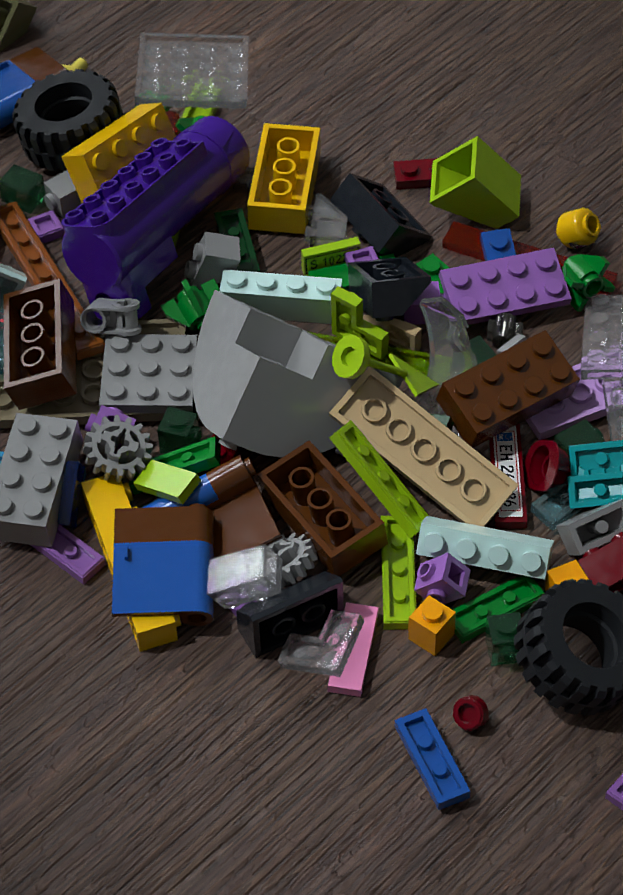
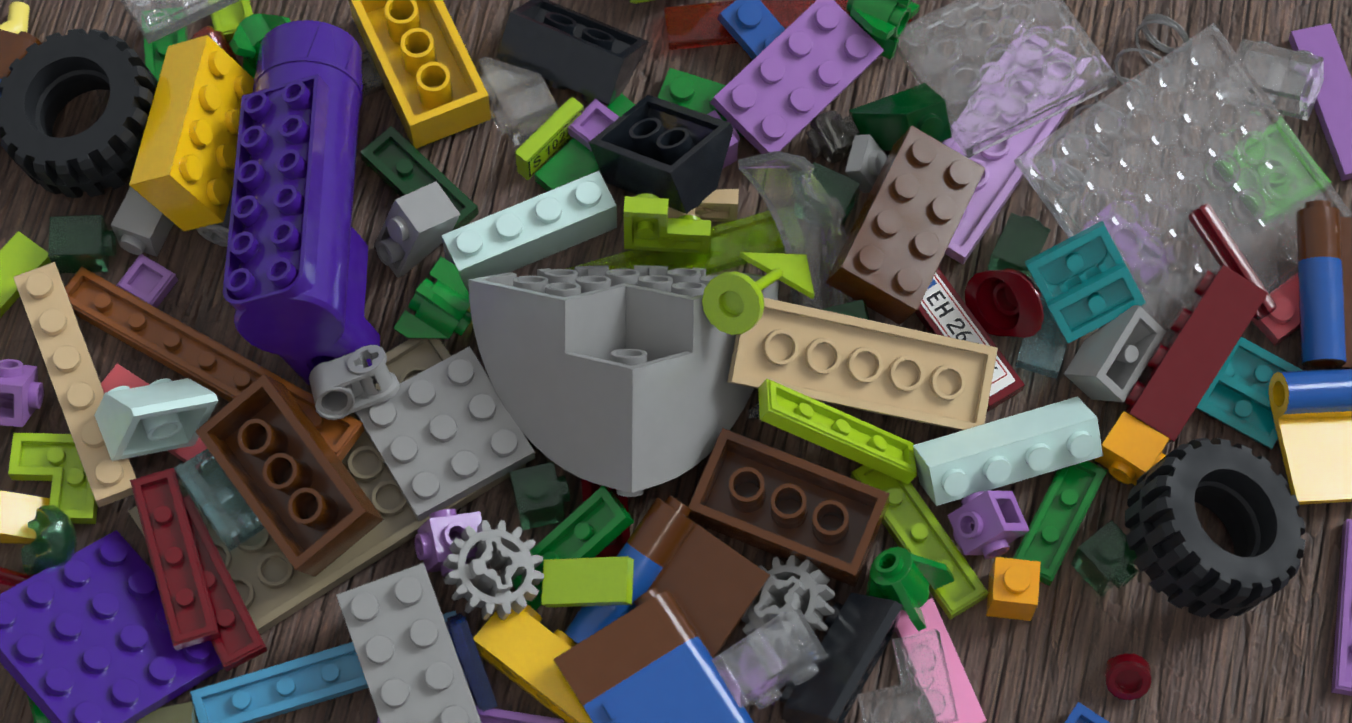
camera: 35 degrees left, 15 degrees up
(364, 583) = (906, 580): none -> green brick
(567, 338) = (893, 115): none -> dark green slope

